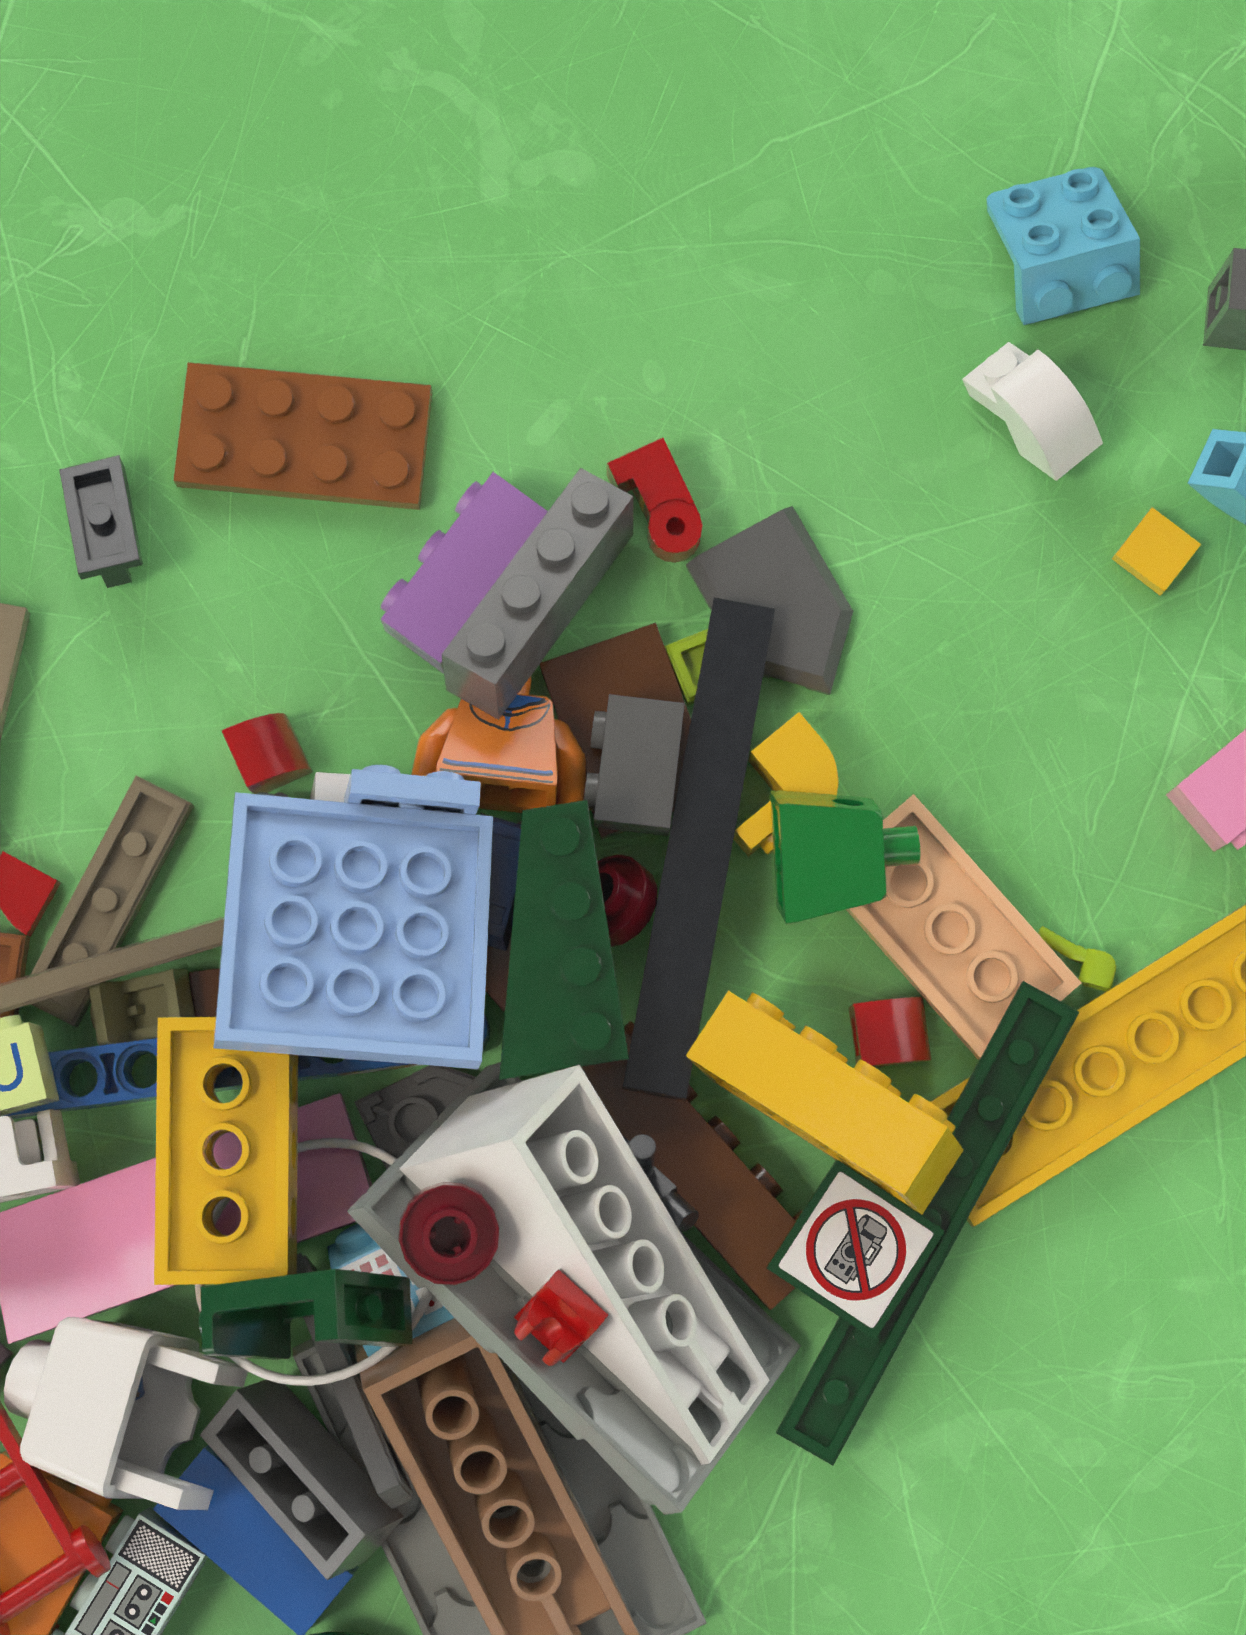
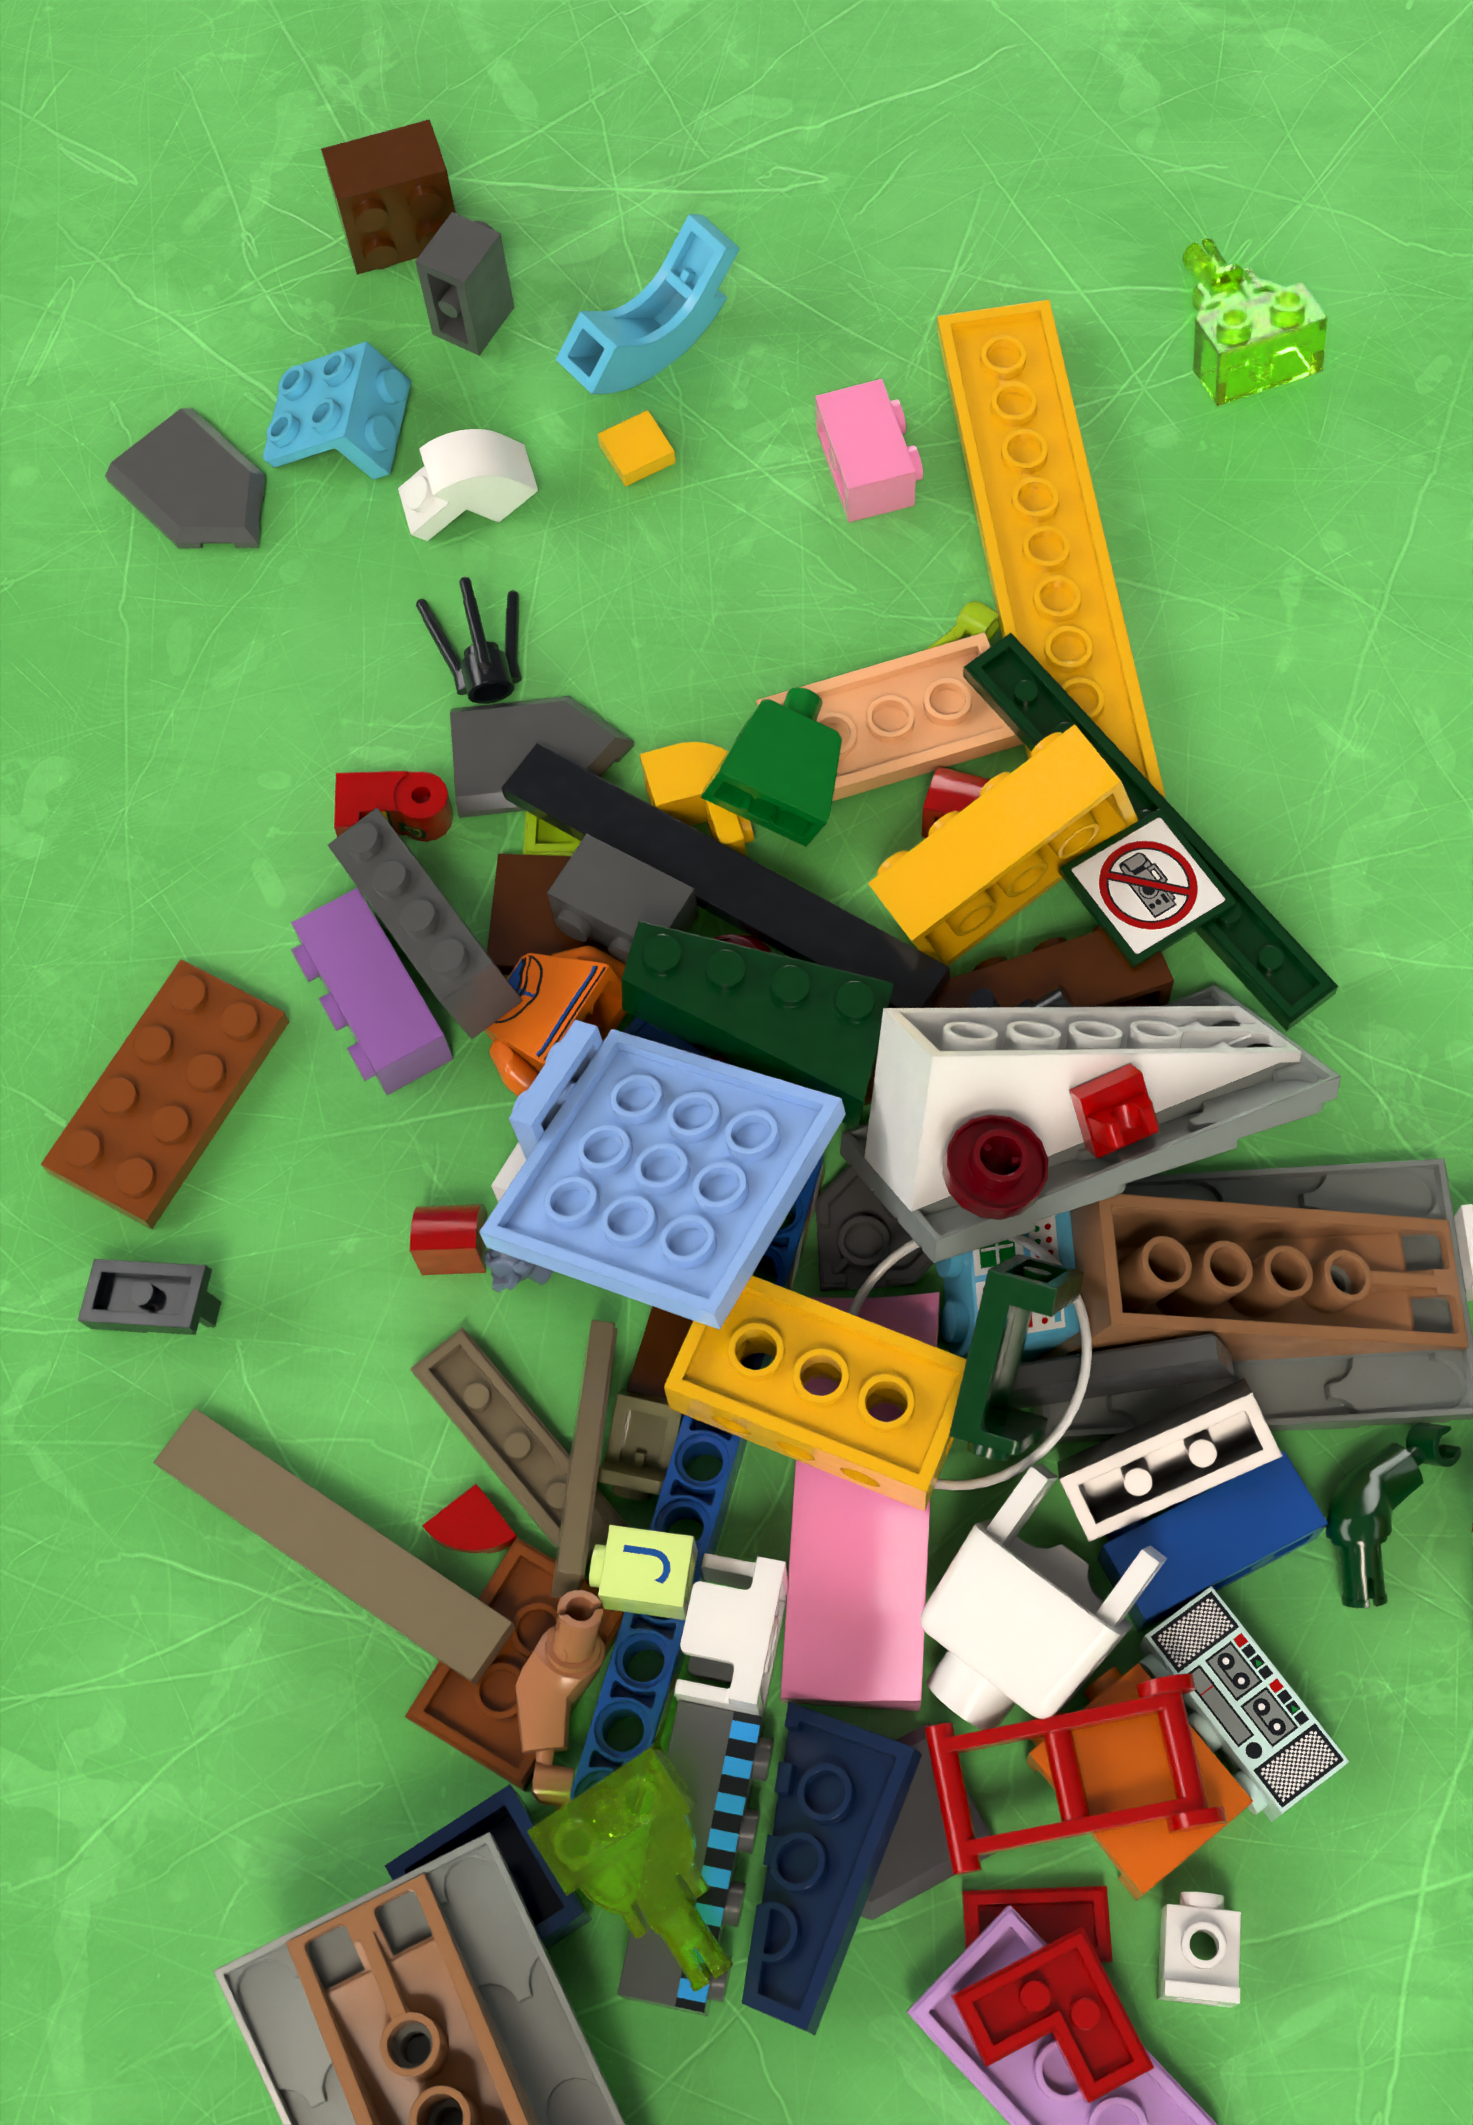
camera: 60 degrees left, 15 degrees down
(842, 521) = (486, 671): none -> black plant
(932, 142) = (192, 484): none -> dark grey tile

